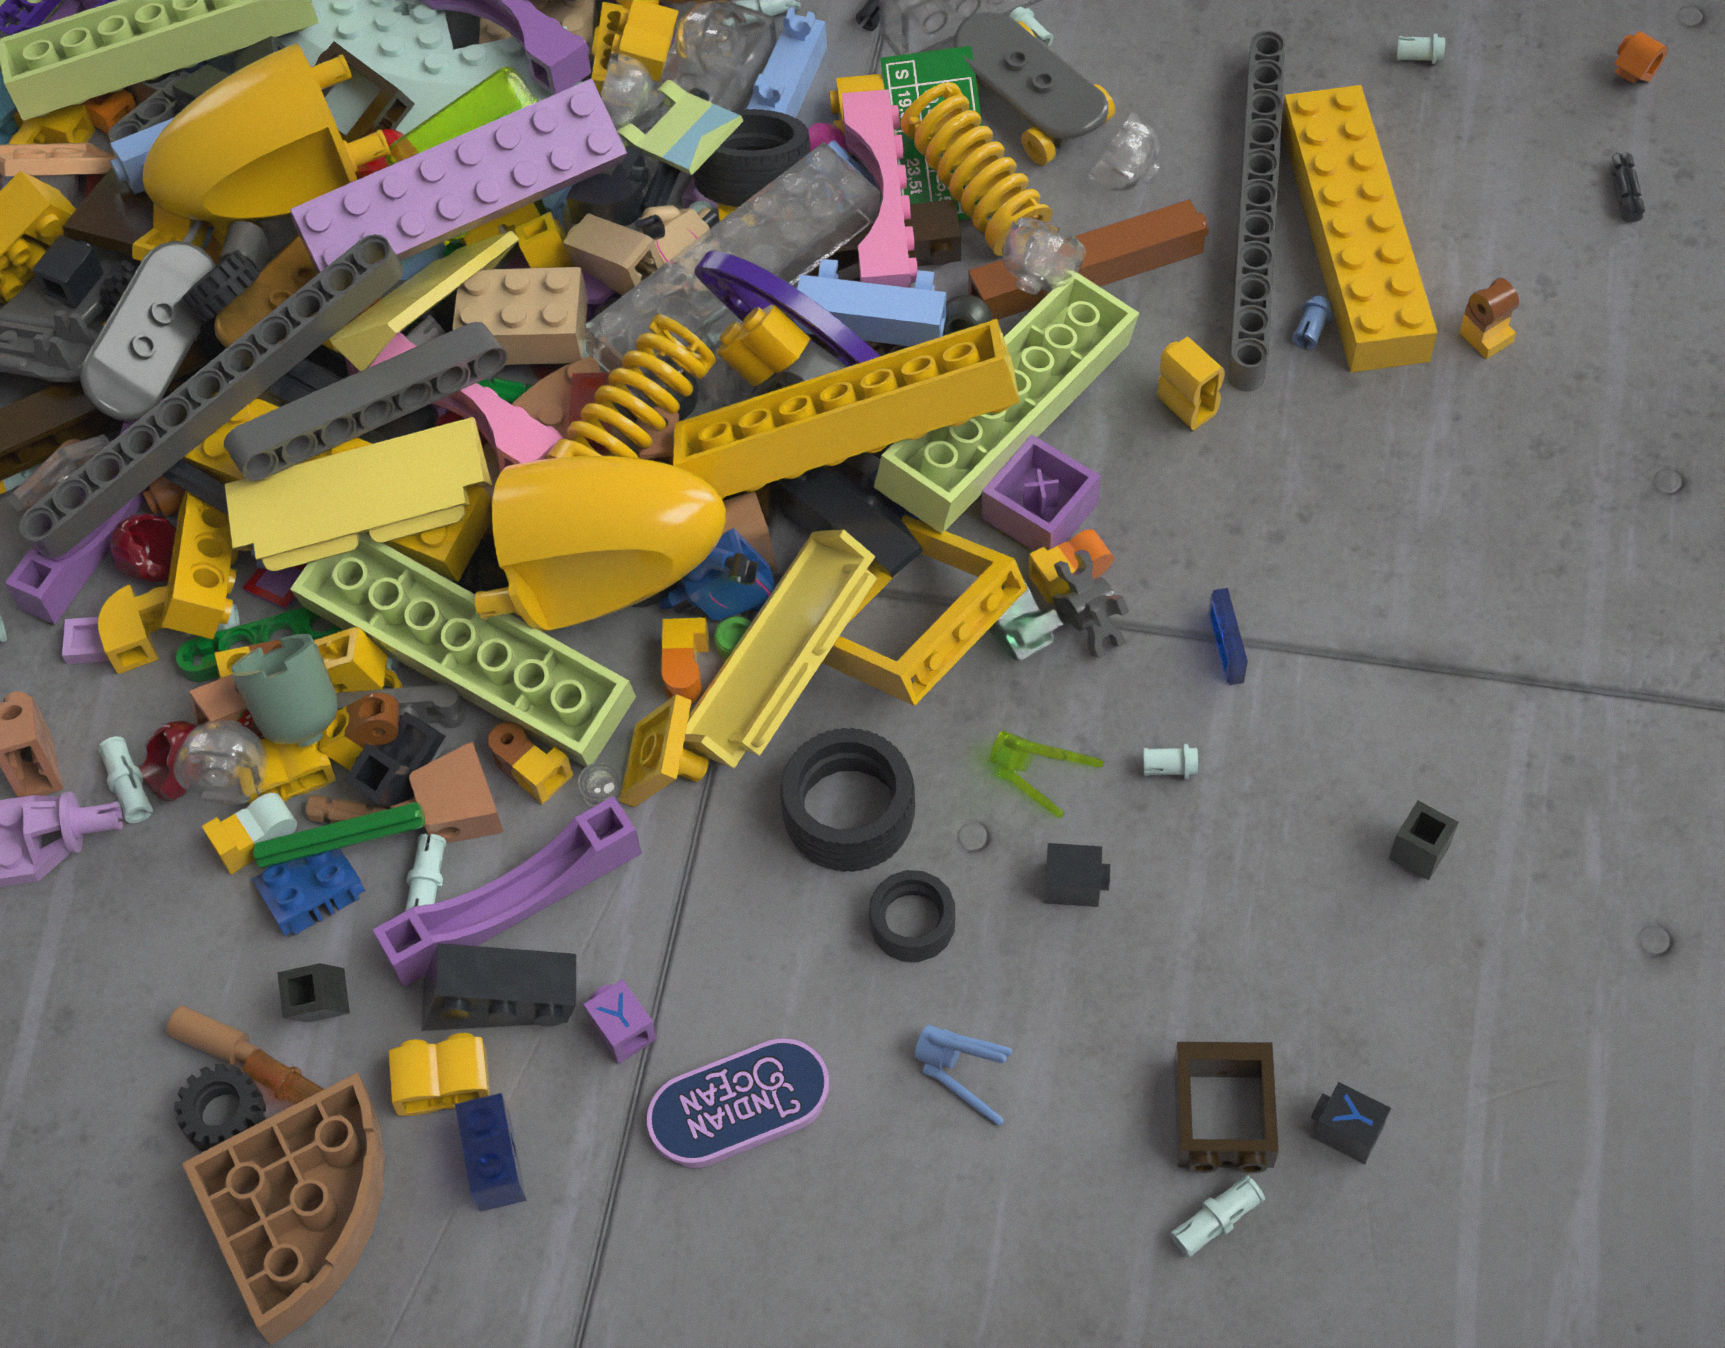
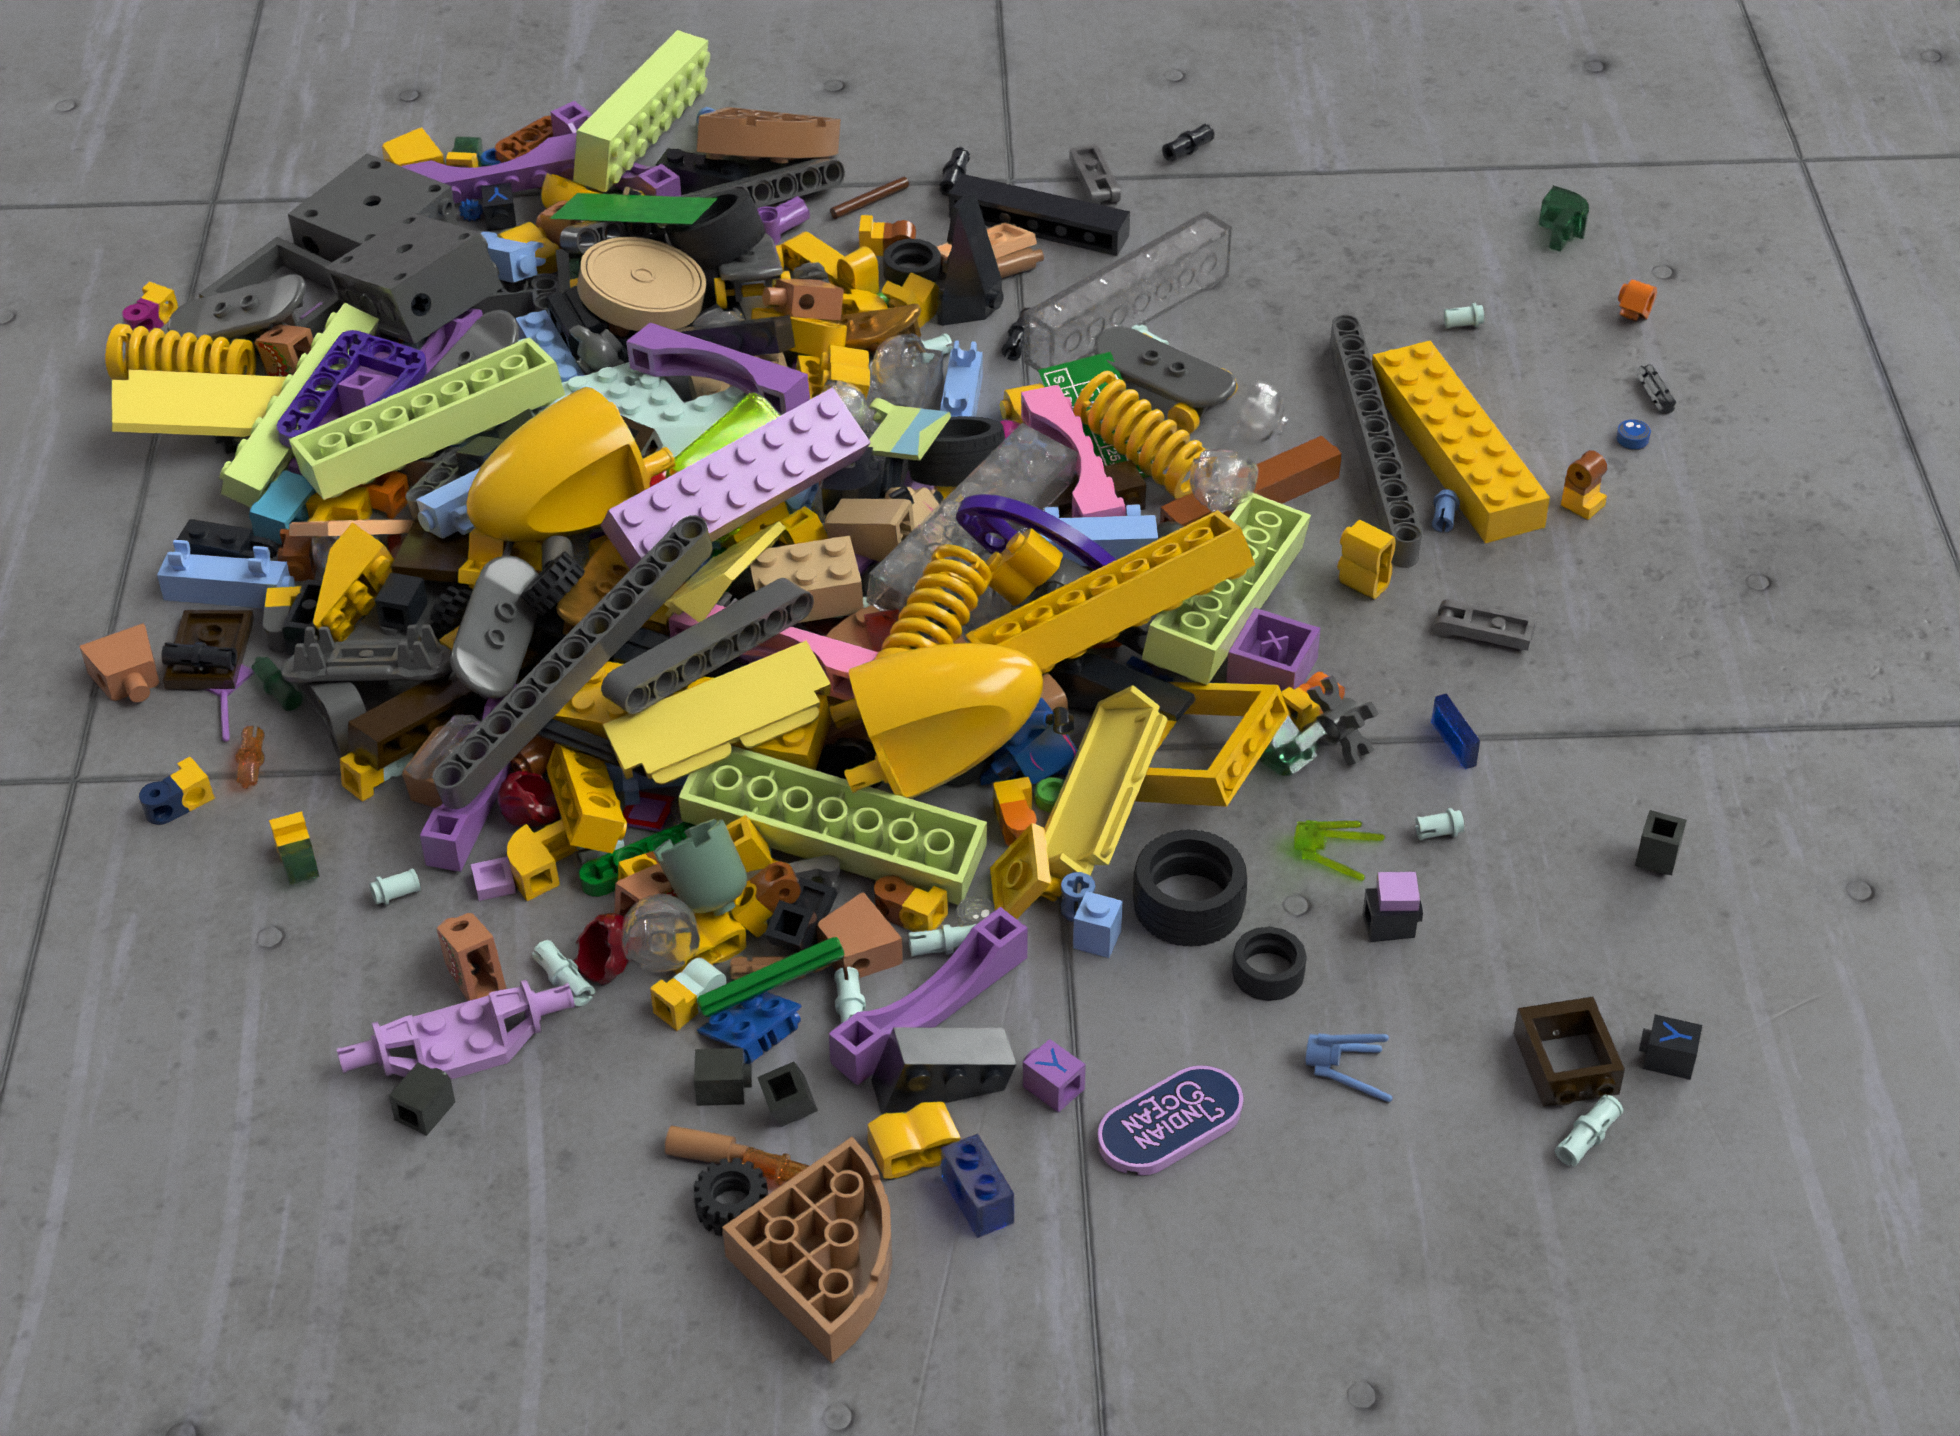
camera: 15 degrees left, 15 degrees down
(252, 951) = (721, 1076): none -> pearl dark grey brick
(548, 813) = (937, 940): none -> light aqua pin
(716, 785) = (1069, 888): none -> medium blue bush
(728, 829) = (1097, 924): none -> light blue brick
(1082, 856) = (1398, 891): none -> lavender tile
(1311, 491) = (1484, 624): none -> flat silver plate
(1578, 247) = (1633, 434): none -> blue tile

